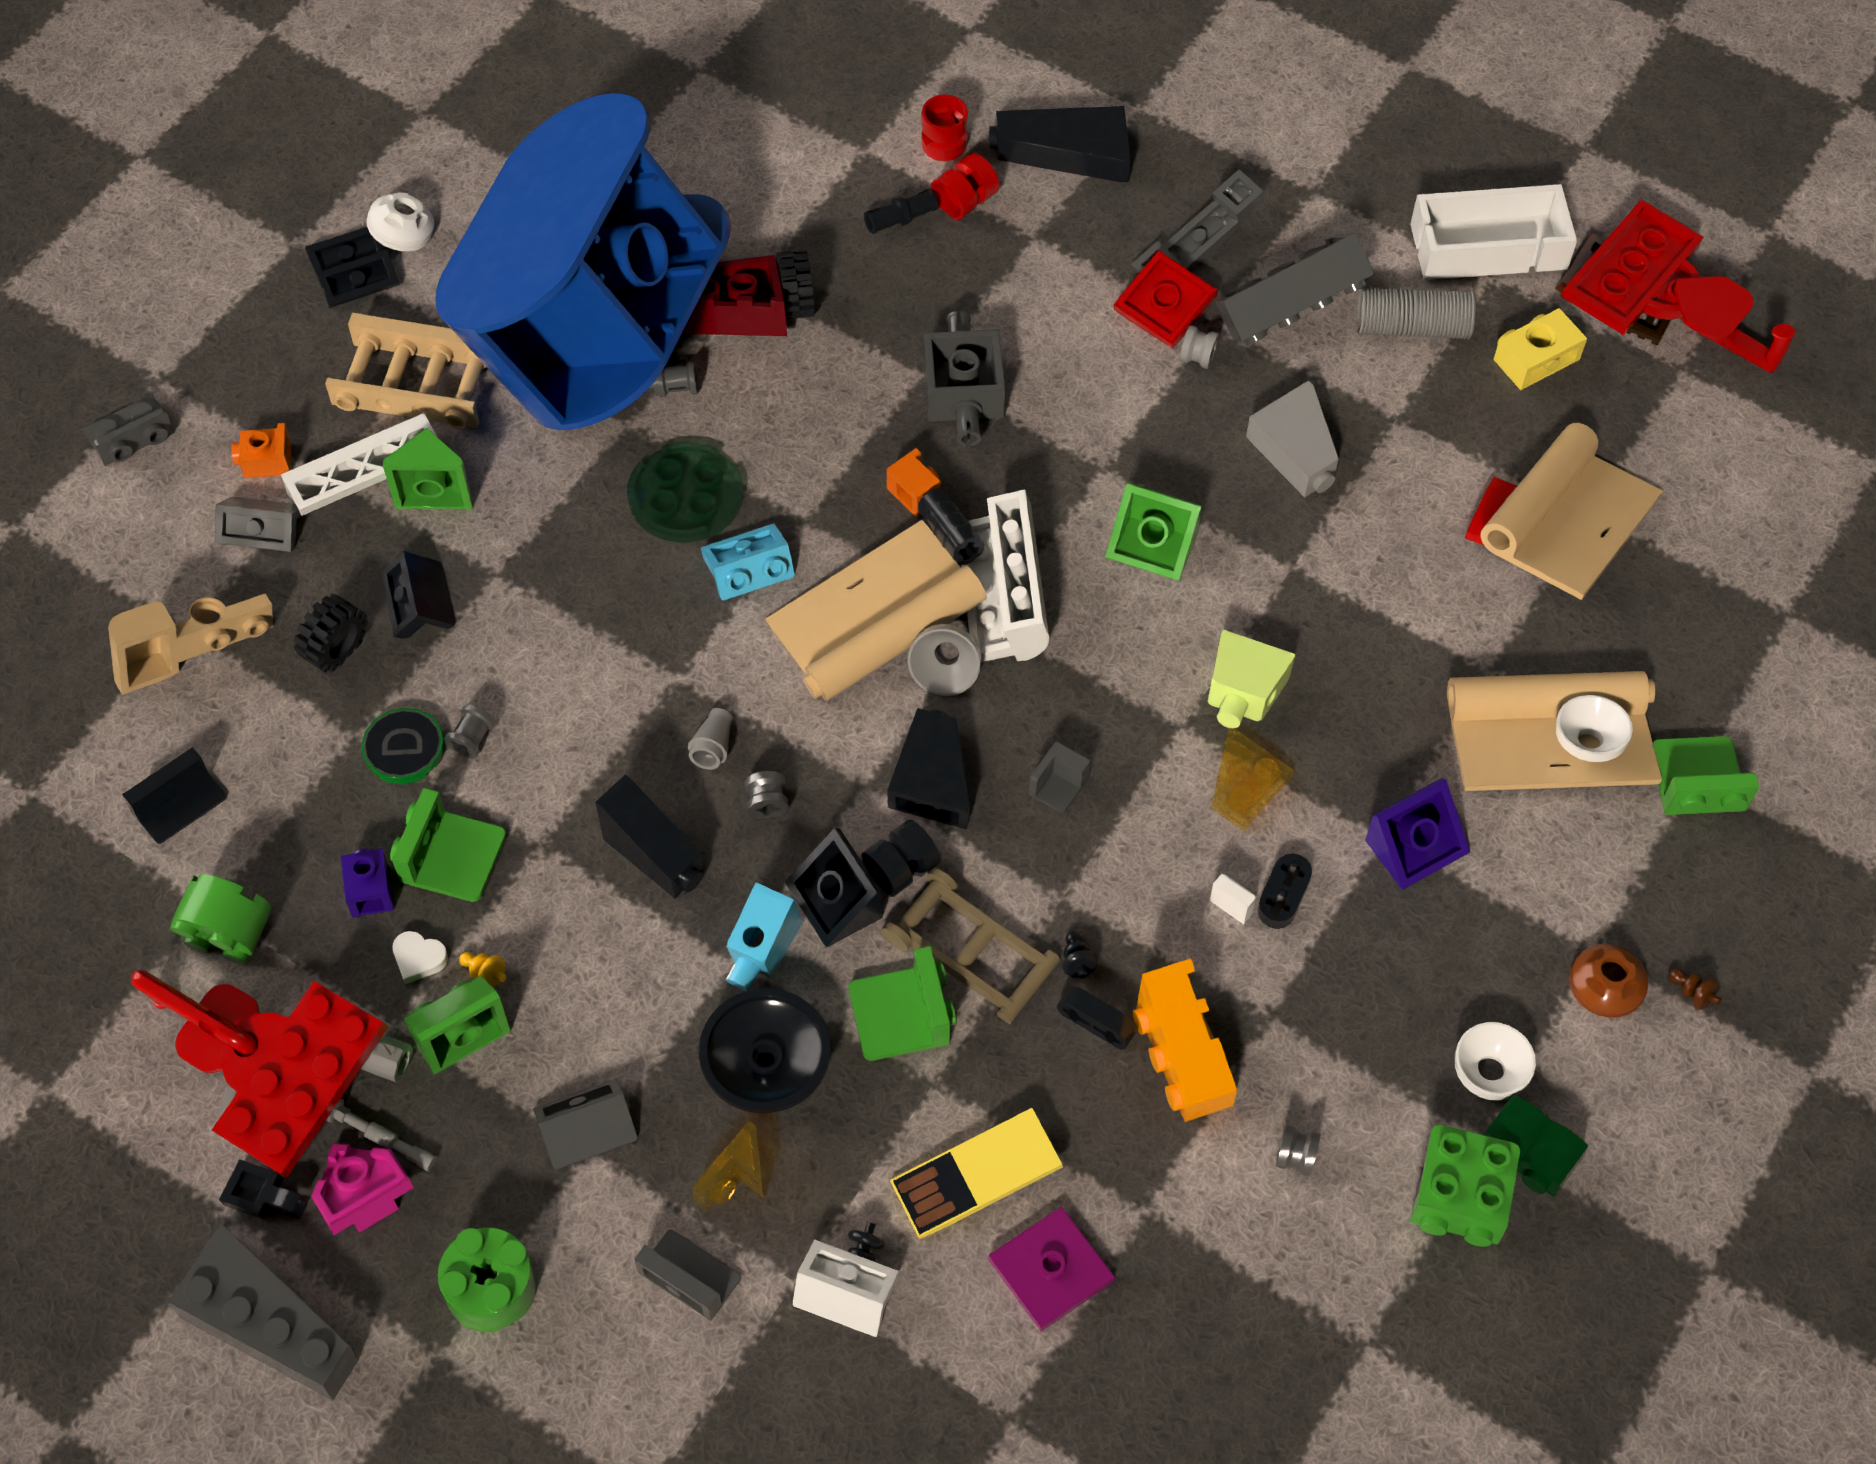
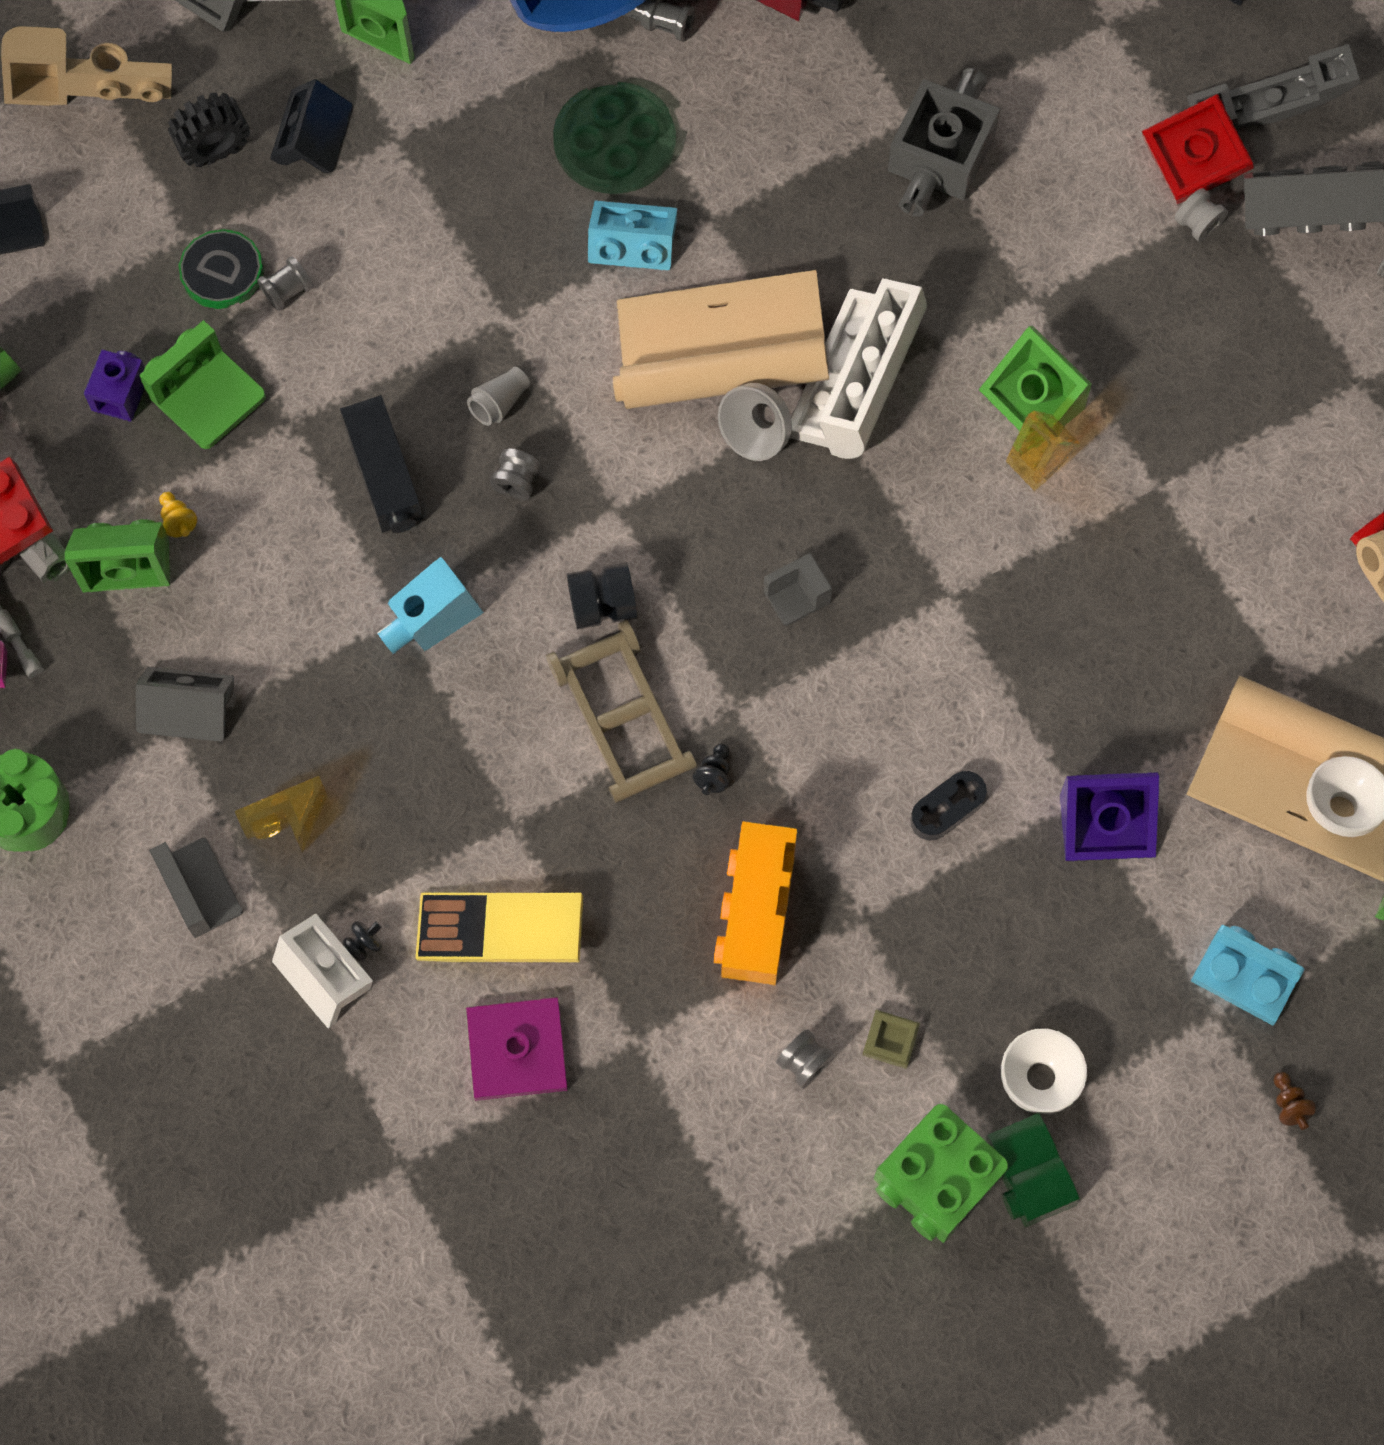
camera: 30 degrees right, 10 degrees up
(417, 956) = (126, 476): white tile -> none
(759, 1026) = (364, 691): black dish -> none
(836, 890) = (524, 597): black slope -> none
(903, 1009) = (521, 740): bright green bracket -> none
(911, 480) = (834, 230): orange brick -> none
(931, 771) = (680, 524): black slope -> none
(951, 526) = (837, 290): black axle -> none
(1097, 1017) = (695, 838): black beam -> none
(1187, 578) = (1041, 448): none -> clear yellow slope
(1233, 898) = (891, 788): white tile -> none
(1247, 678) = (1037, 579): yellowish green torso -> none
(1247, 780) = (979, 679): clear yellow wing -> none
(1296, 439) = (1239, 357): light grey slope -> none
(1354, 1100) = (891, 1039): none -> olive tile
(1599, 904) = (1248, 973): none -> medium azure bracket
(1606, 996) = (1200, 1069): dark orange piece -> none

